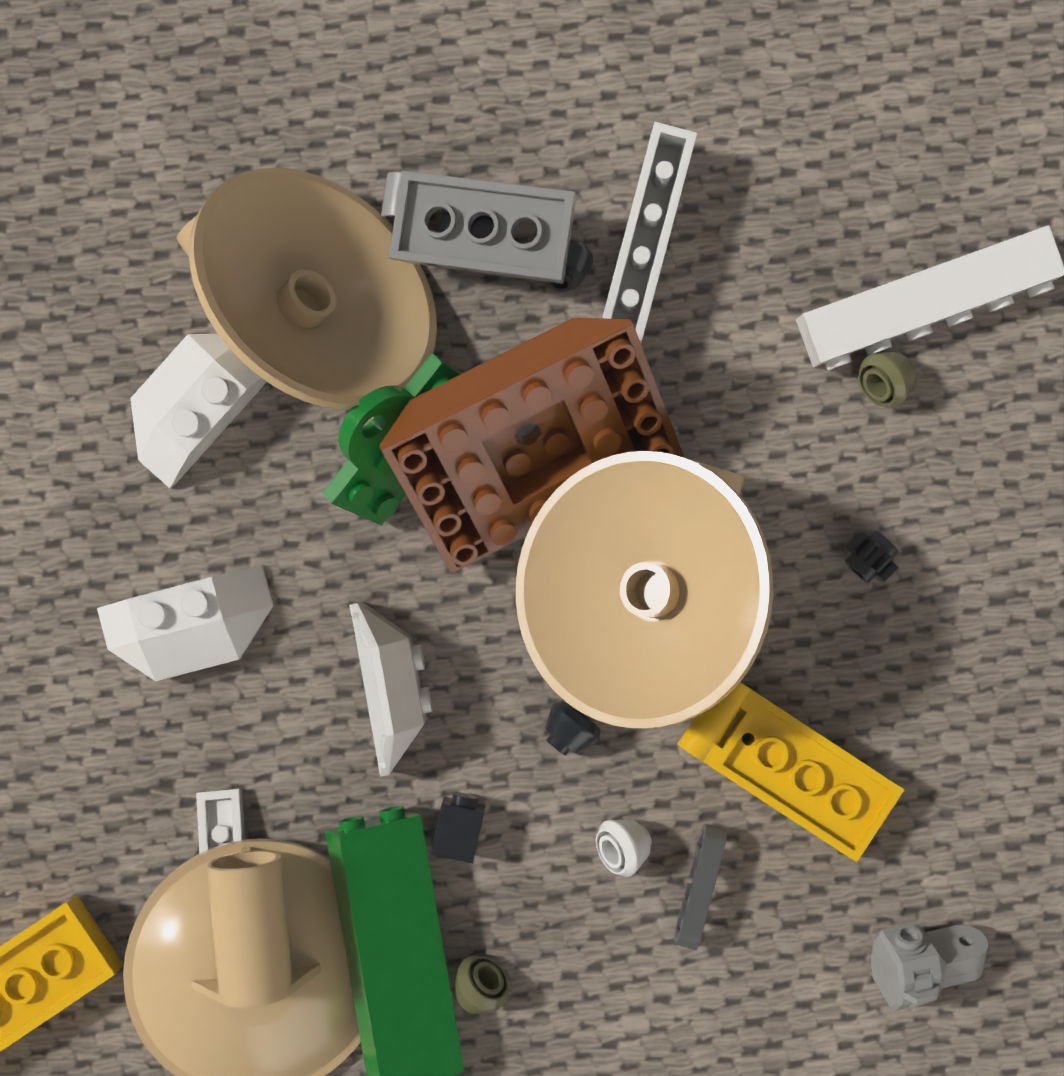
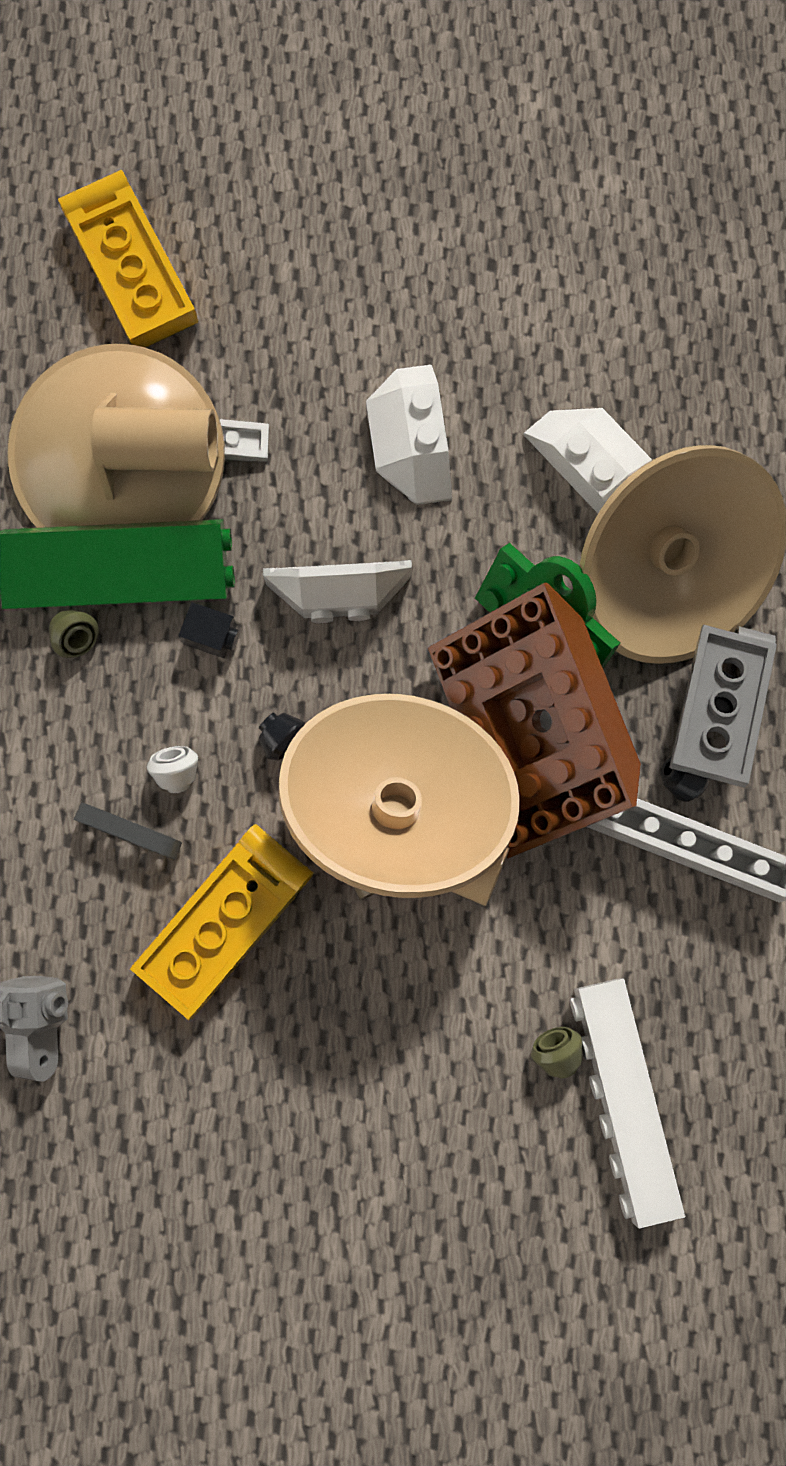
camera: 95 degrees right, 10 degrees down
(871, 556) = (399, 1018): black gear -> none

